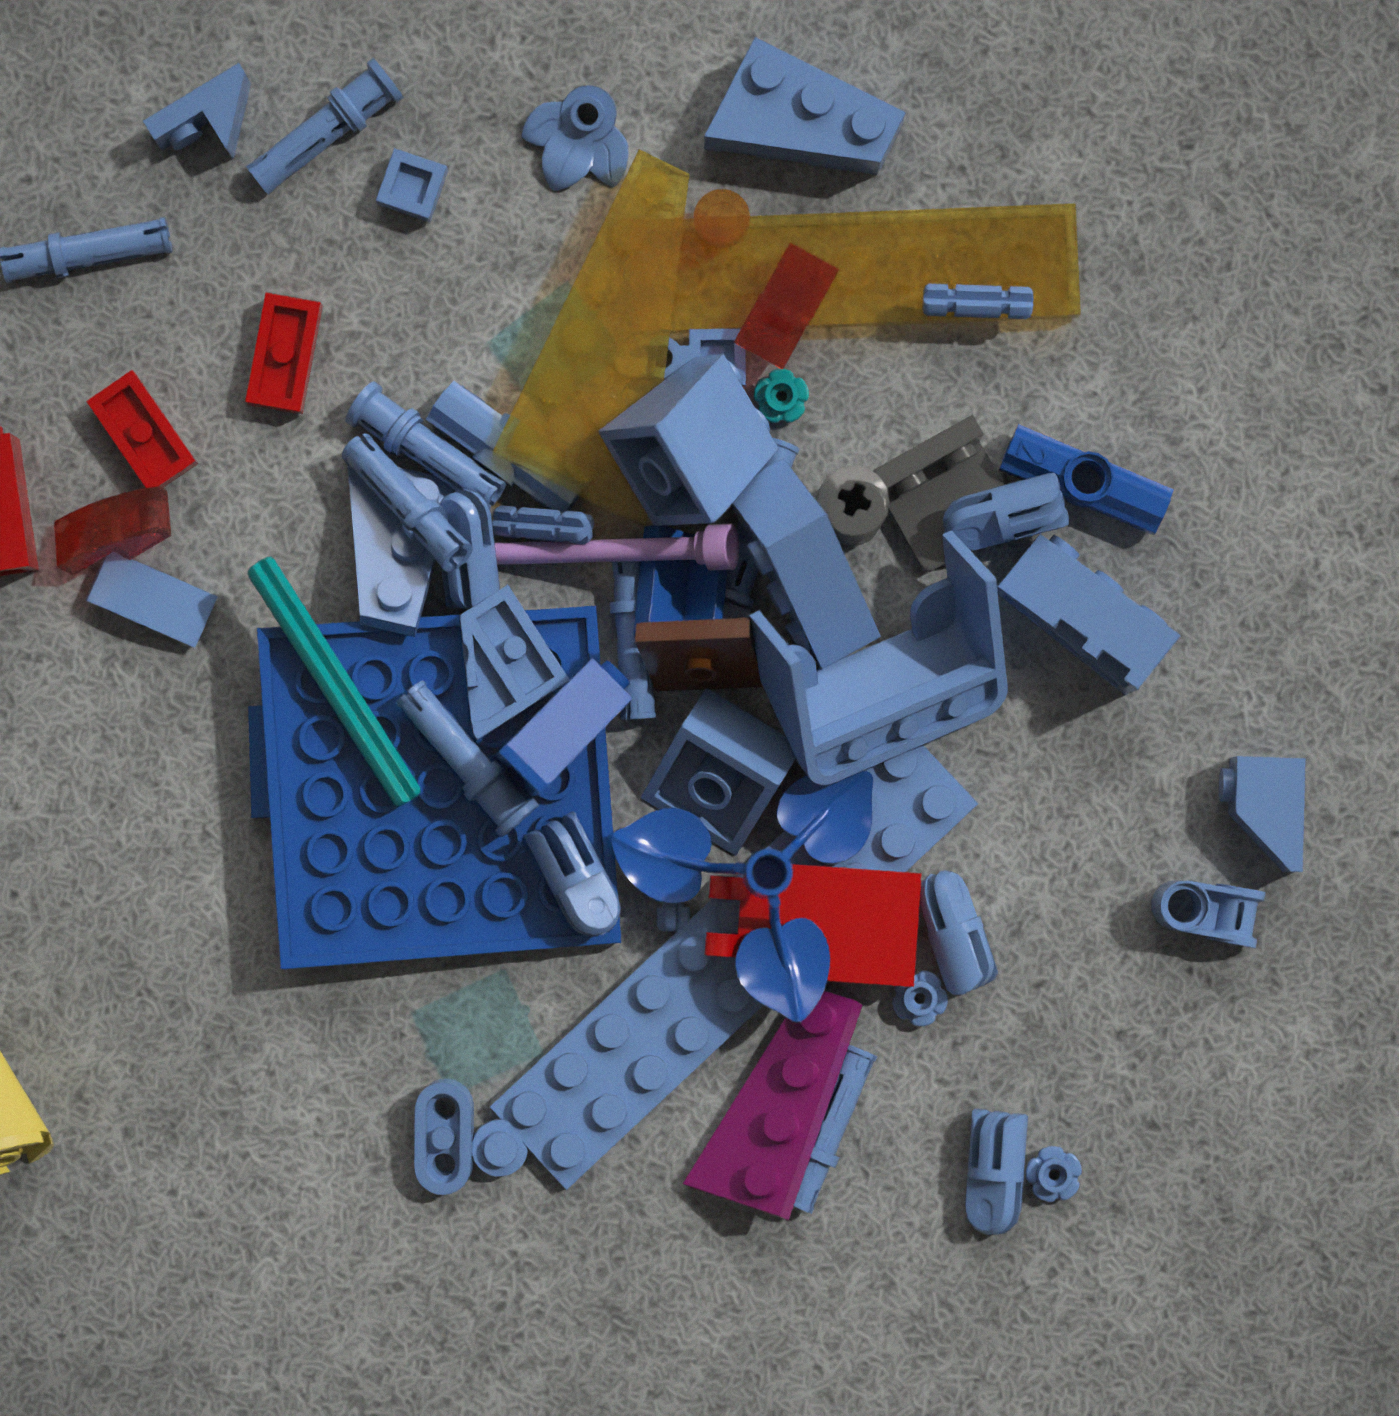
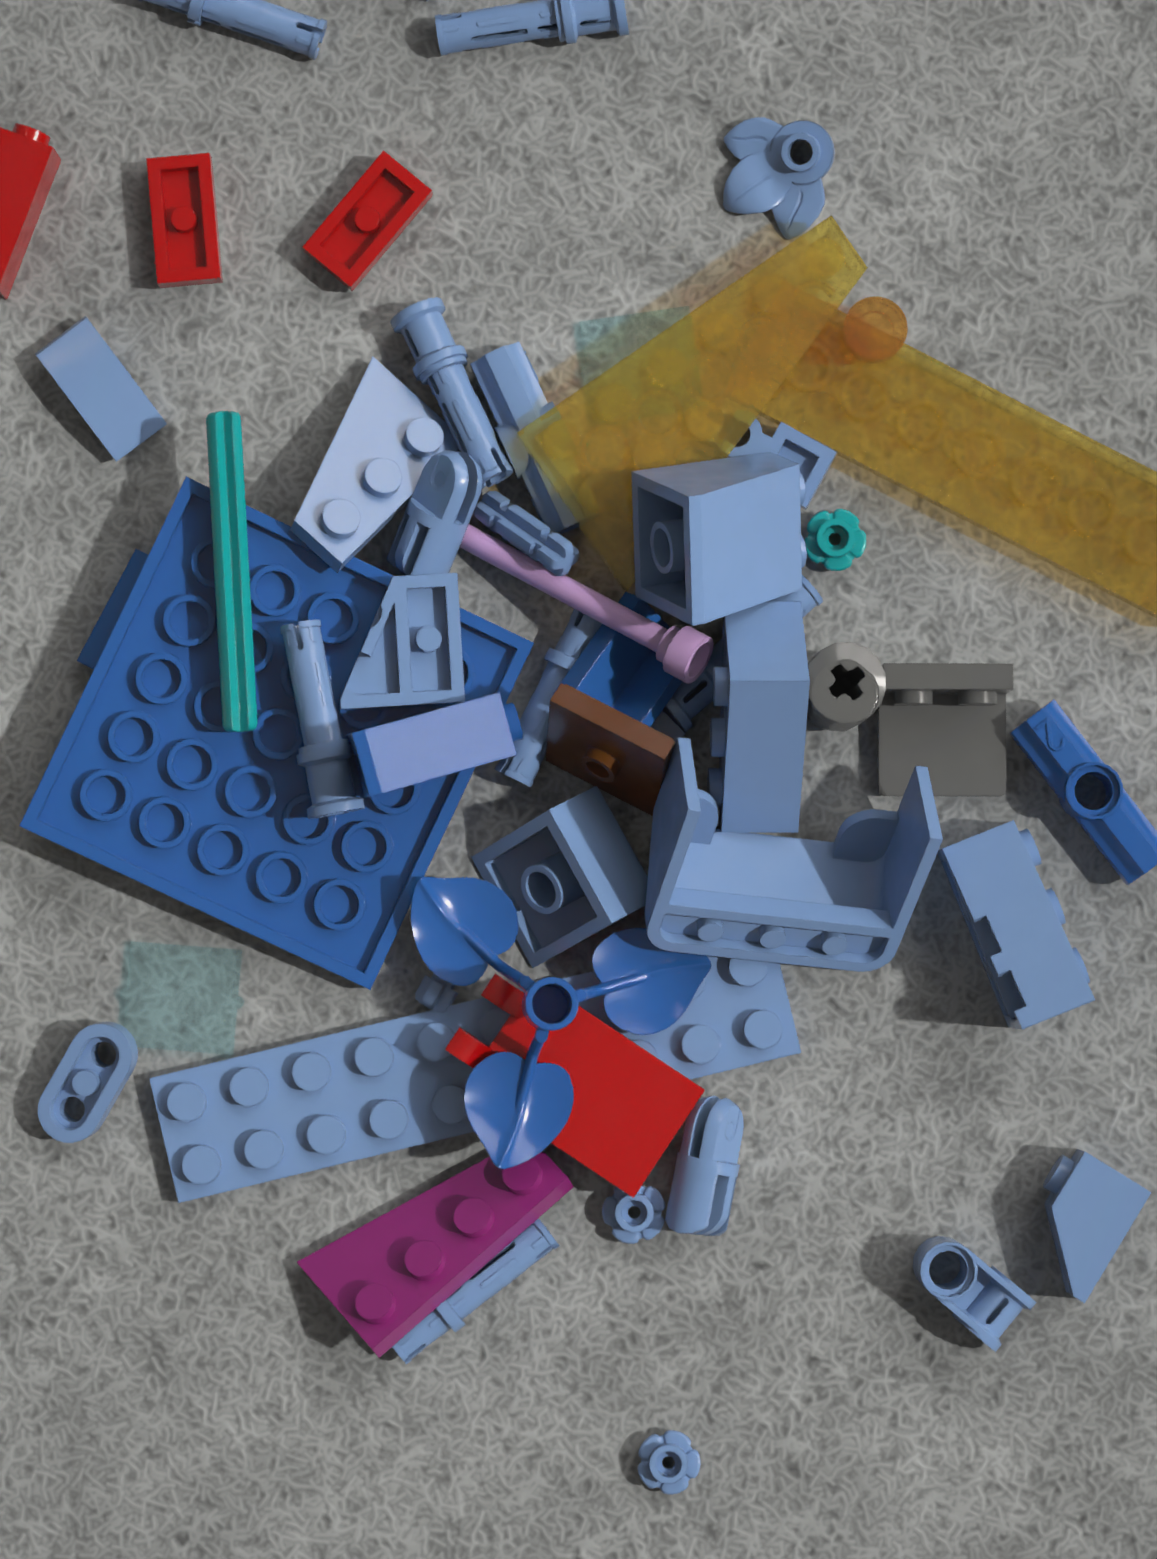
camera: 30 degrees right, 0 degrees up
(118, 524) = (110, 297): clear red slope -> none
(412, 185) = (588, 125): medium blue plate -> none
(421, 518) = (408, 456): medium blue pin -> none
(499, 1147) = (135, 1123): medium blue plate -> none
(575, 875) = (361, 898): medium blue arm -> none
(787, 305) = (890, 452): clear red slope -> none
(801, 115) = (1012, 271): medium blue wedge -> none
(978, 301) = (1082, 554): medium blue axle -> none
(995, 1170) = (612, 1425): medium blue arm -> none
(1008, 512) = (993, 780): medium blue arm -> none

